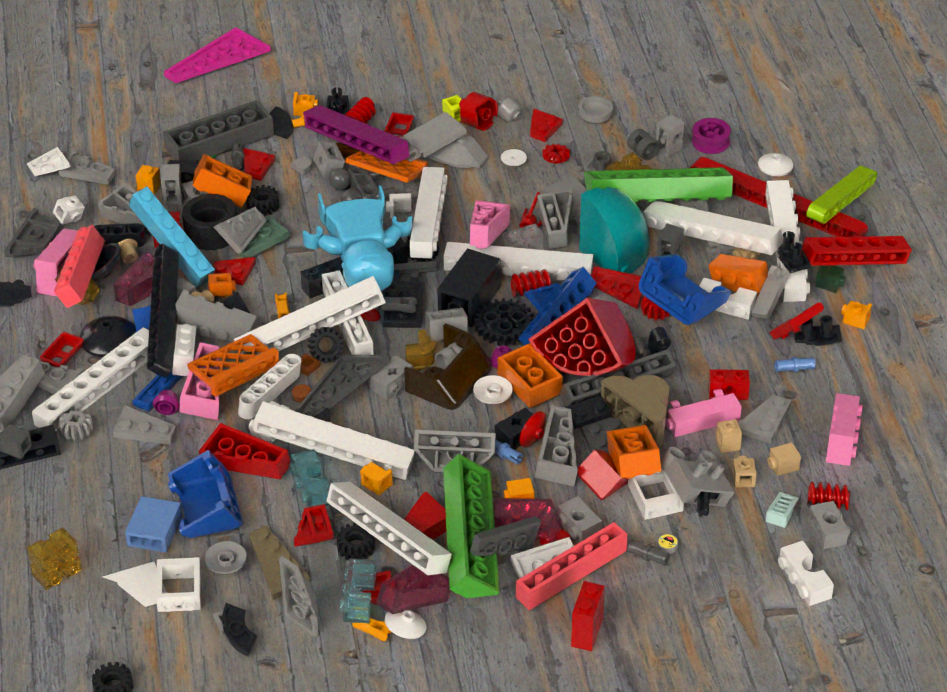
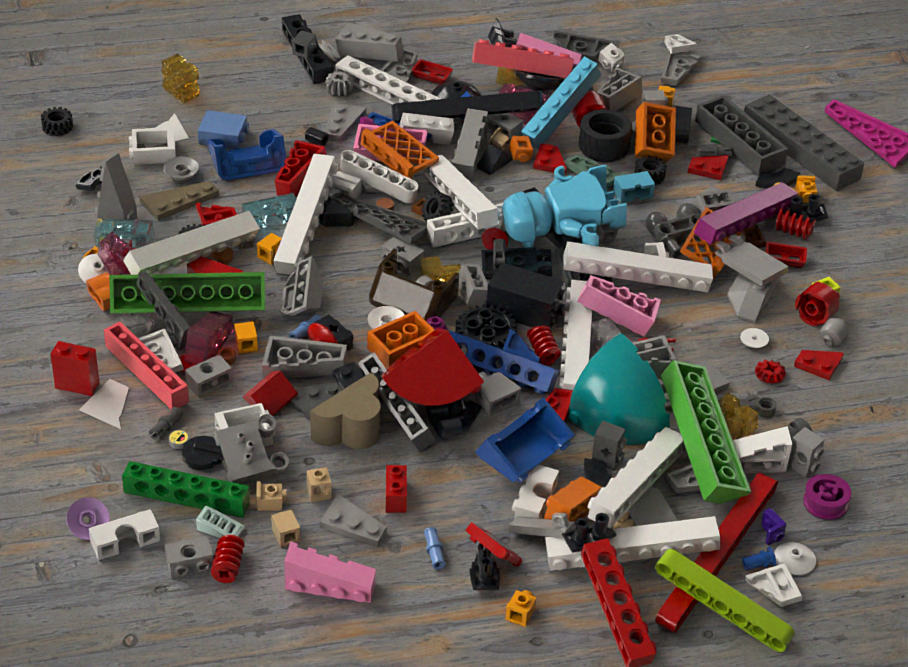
camera: 85 degrees right, 0 degrees up
(175, 445) = (316, 136): none -> black piece
(241, 229) = (588, 148): light grey wing -> none
(262, 84) = (806, 143): none -> dark grey brick
(282, 305) = (499, 189): light orange bar -> none
(289, 211) = (633, 186): none -> medium azure brick
(444, 612) = (100, 290): none -> orange brick
(595, 109) = (856, 402): light grey piece -> none
(622, 607) = (107, 403): none -> white sticker
(633, 451) = (278, 396): orange brick -> none
(666, 151) = (765, 451): none -> white wedge
(685, 525) = (198, 461): none -> black tile
(700, 260) = (596, 472): none -> black tile
(702, 414) = (353, 470): bright pink brick -> none
(743, 530) = (185, 489): none -> green brick
(750, 165) = (773, 526): none -> dark purple bracket
(784, 173) = (758, 560): none -> blue pin
(790, 601) = (86, 507): none -> lavender dish
(810, 173) = (776, 585): none -> white wing
(830, 278) = (580, 588): clear green brick -> none

